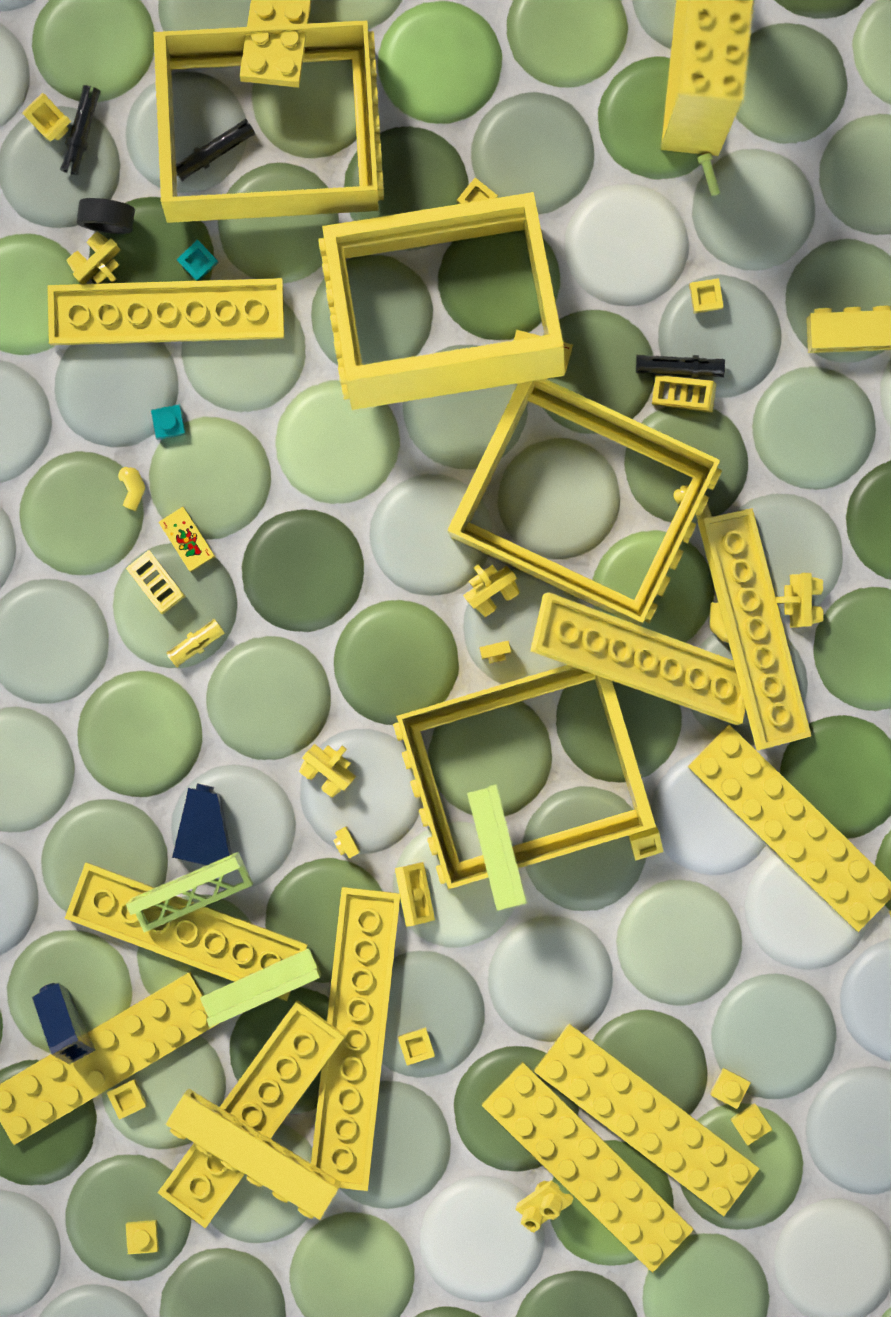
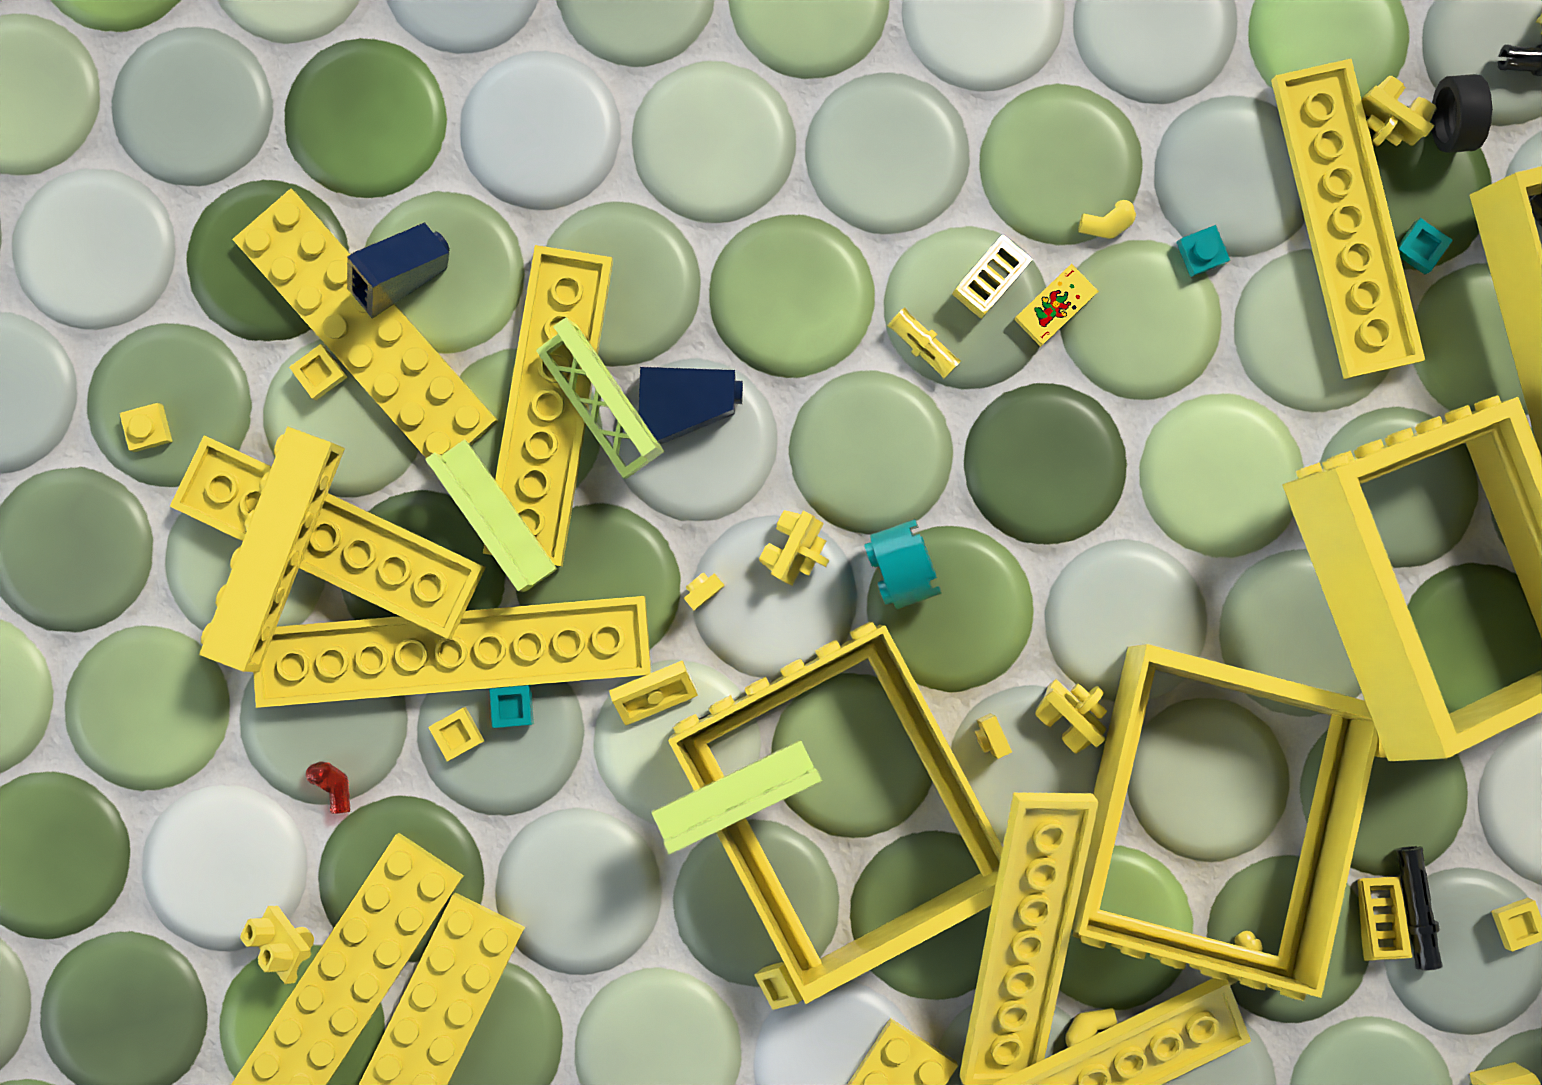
camera: 75 degrees right, 0 degrees up
(356, 692) = (903, 565): none -> teal brick
(403, 1001) = (511, 706): none -> teal plate
(434, 1144) = (332, 781): none -> clear red arm

